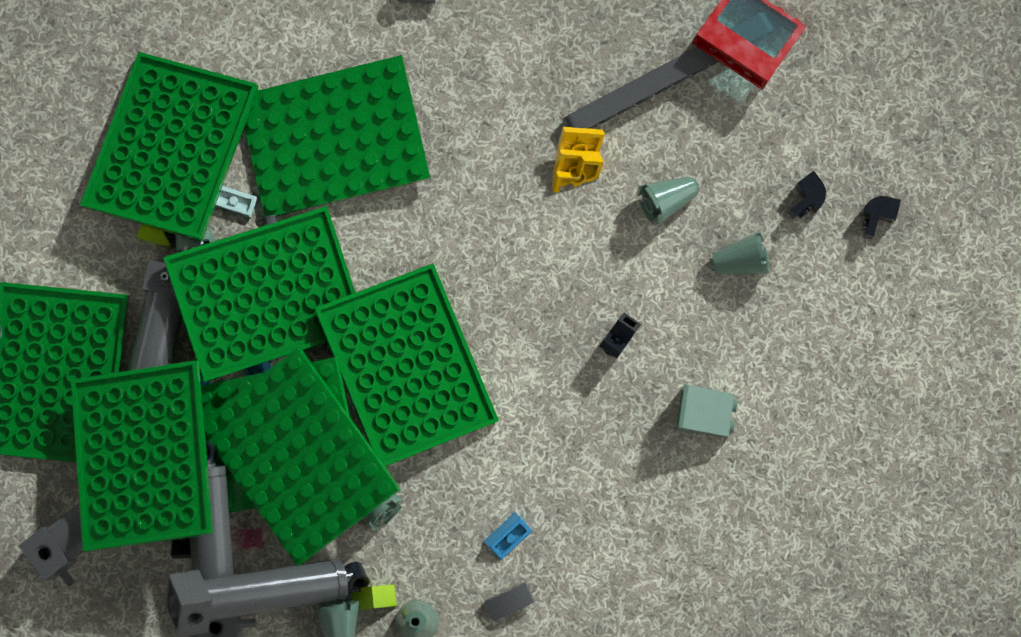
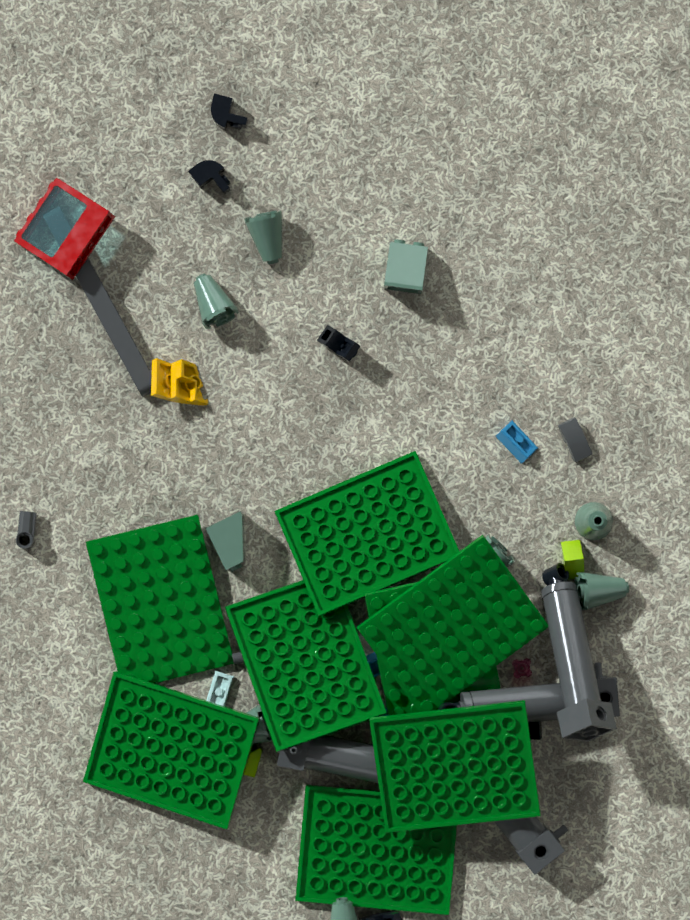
camera: 80 degrees left, 5 degrees up
(400, 212) = (229, 540): none -> sand green slope

